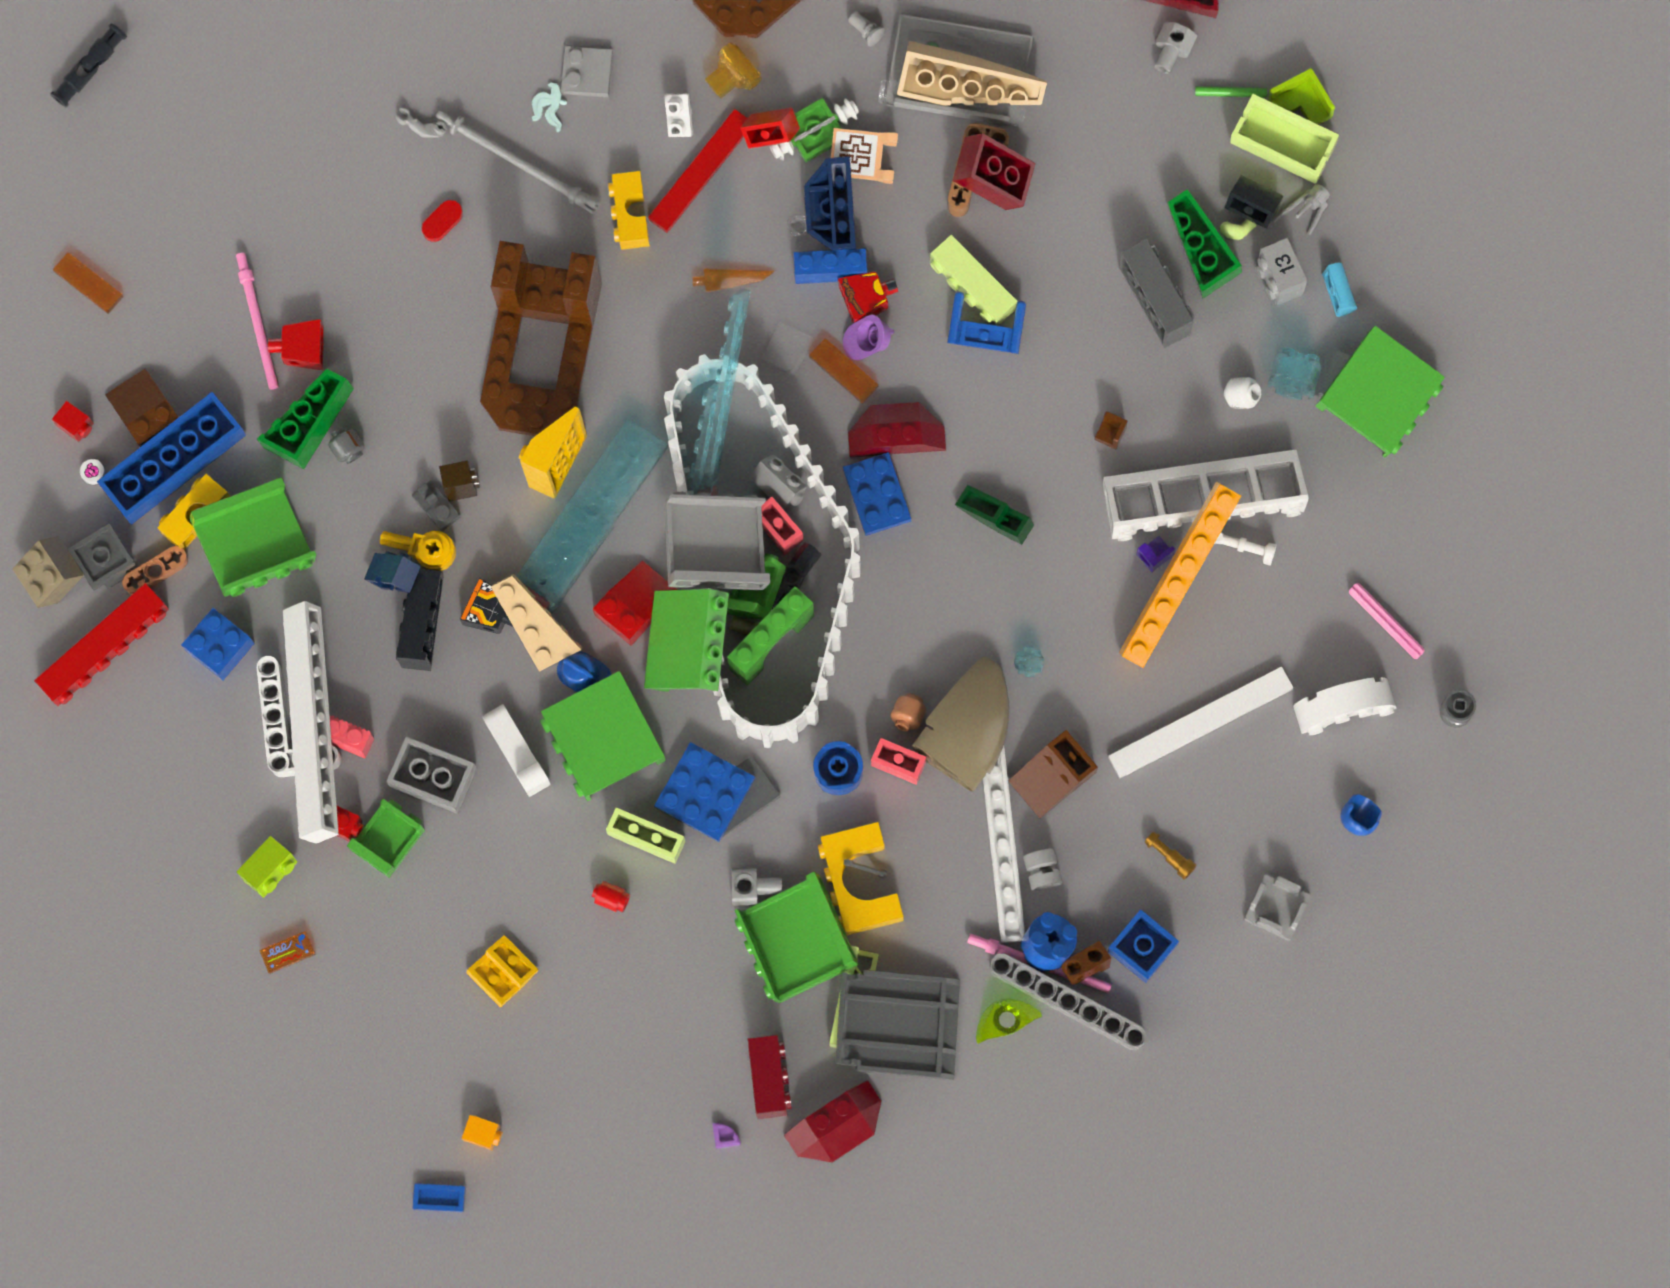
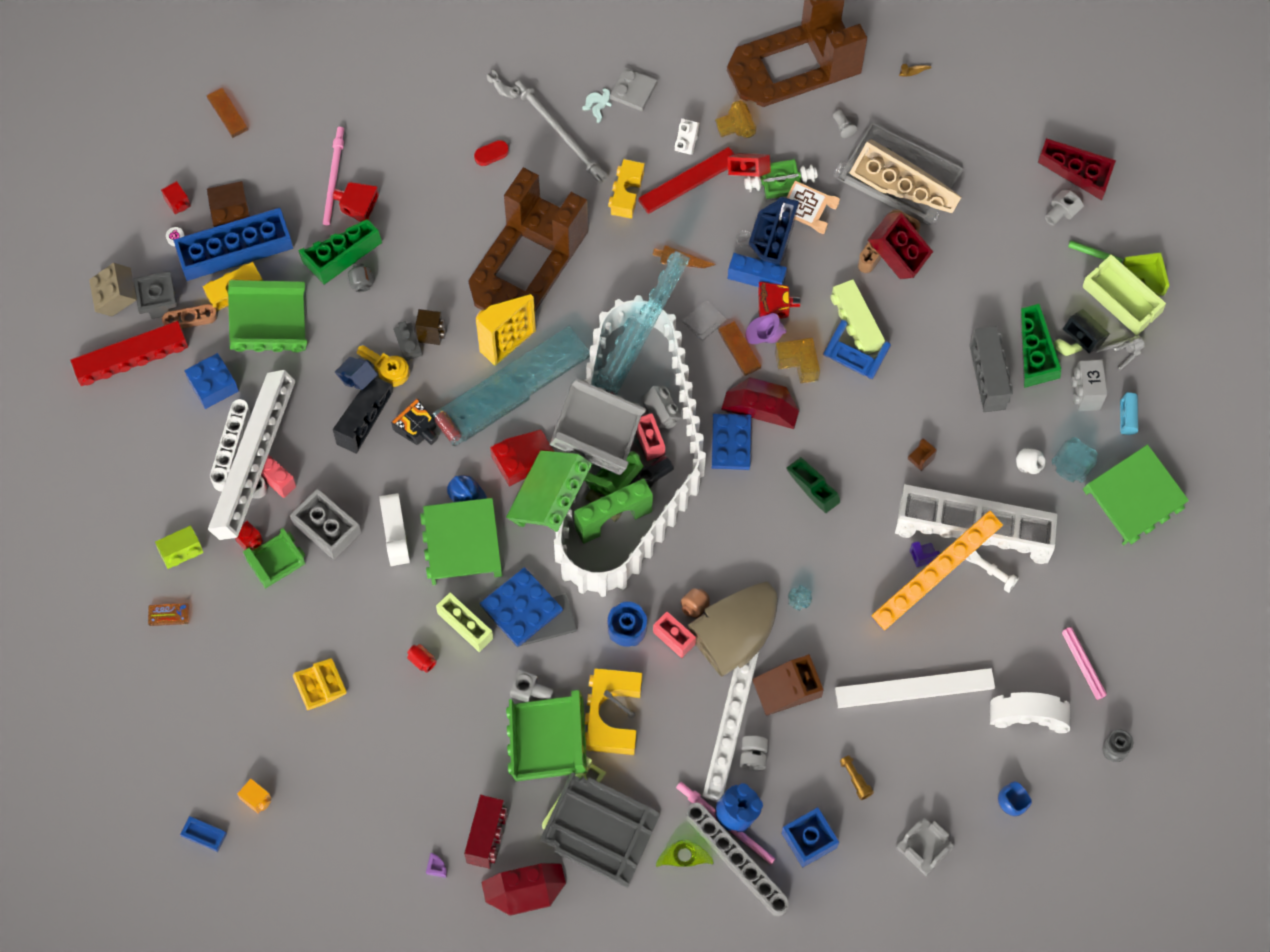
camera: 15 degrees right, 10 degrees down
(537, 629) = (443, 443): tan wing -> none
(924, 354) = (799, 354): none -> clear yellow brick
(1086, 963) = (762, 834): reddish brown leg -> none

